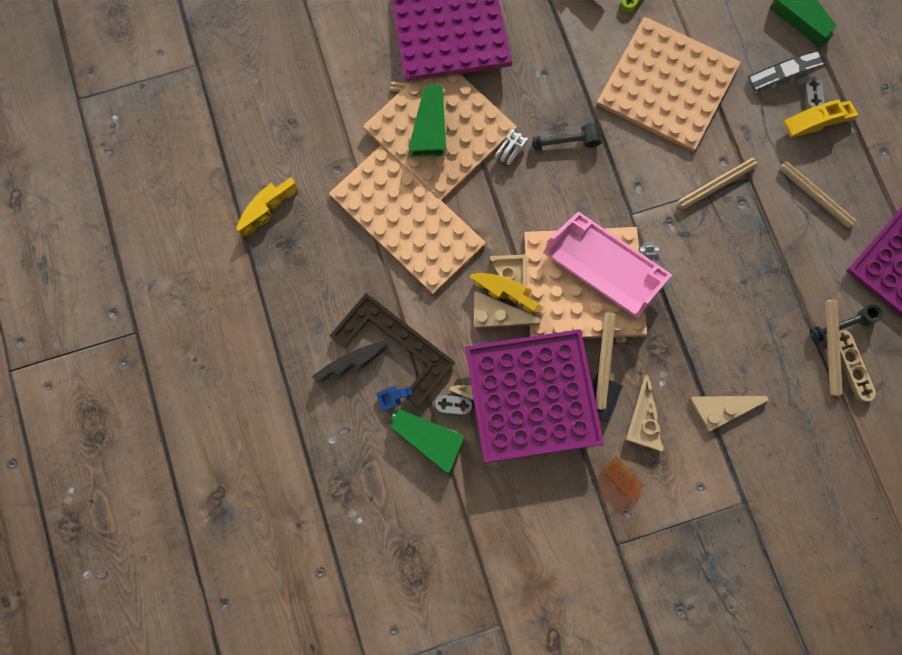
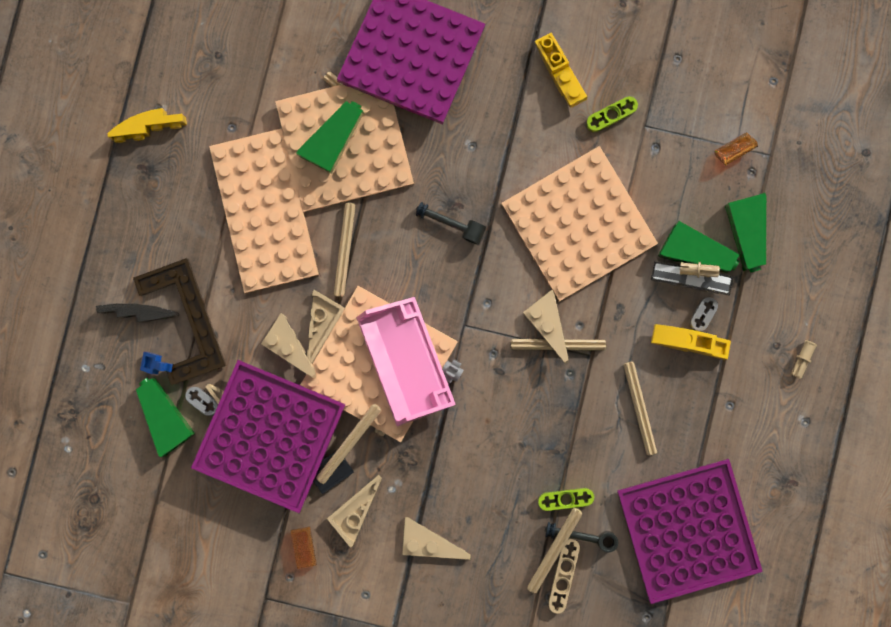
camera: 35 degrees right, 10 degrees up
(494, 211) = (344, 249): none -> tan axle
(507, 288) = (305, 325): yellow slope -> none
(512, 146) = (395, 200): white arm -> none
(696, 169) = (546, 320): none -> tan wing
(773, 47) = (692, 247): none -> green slope
(790, 57) = (699, 270): none -> tan axle
(818, 302) = (581, 503): none -> lime beam

